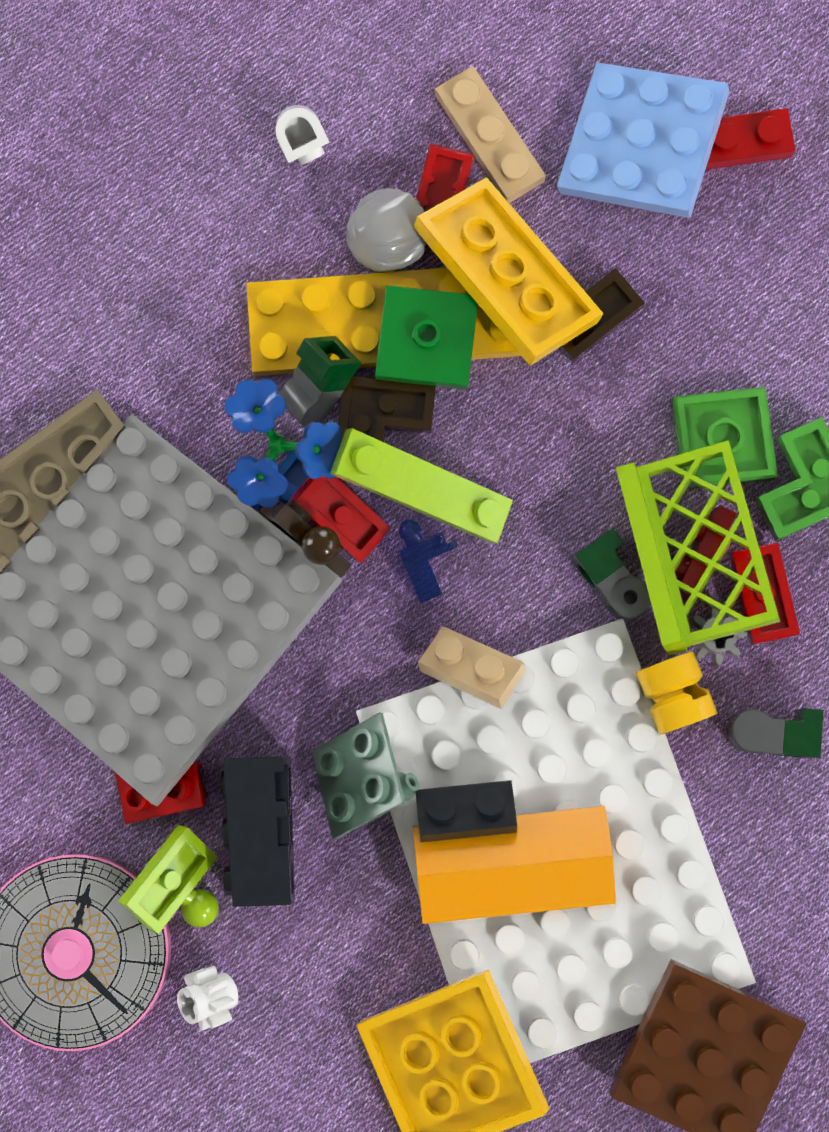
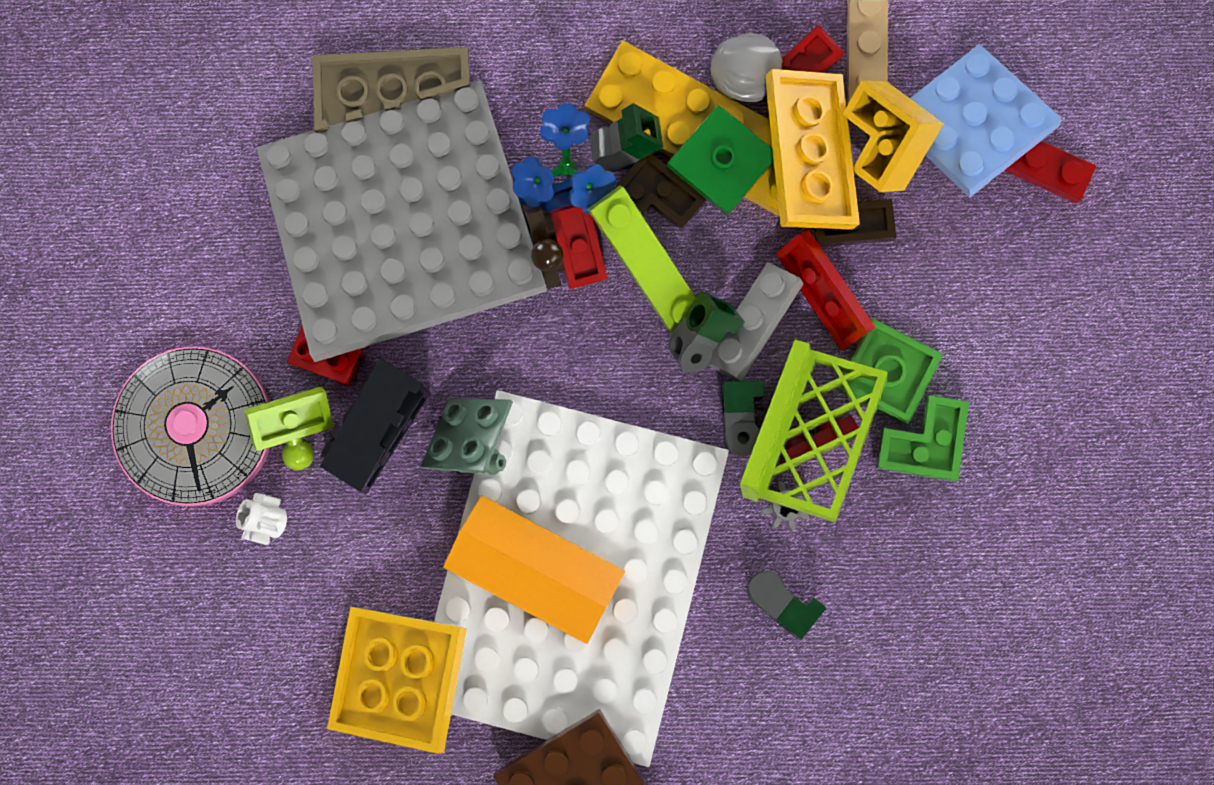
camera: 30 degrees right, 0 degrees up
(416, 557) = (611, 310): clear blue piece -> none
(466, 811) = (525, 509): black plate -> none
(471, 667) = (598, 412): tan plate -> none
(520, 519) = (702, 331): none -> leg
(562, 476) = (762, 312): none -> light grey plate
(581, 197) = (898, 132): none -> yellow brick
(611, 399) = (825, 290): none -> red plate
(676, 693) = (730, 526): yellow wheel -> none
(753, 603) = (850, 510): red plate -> none

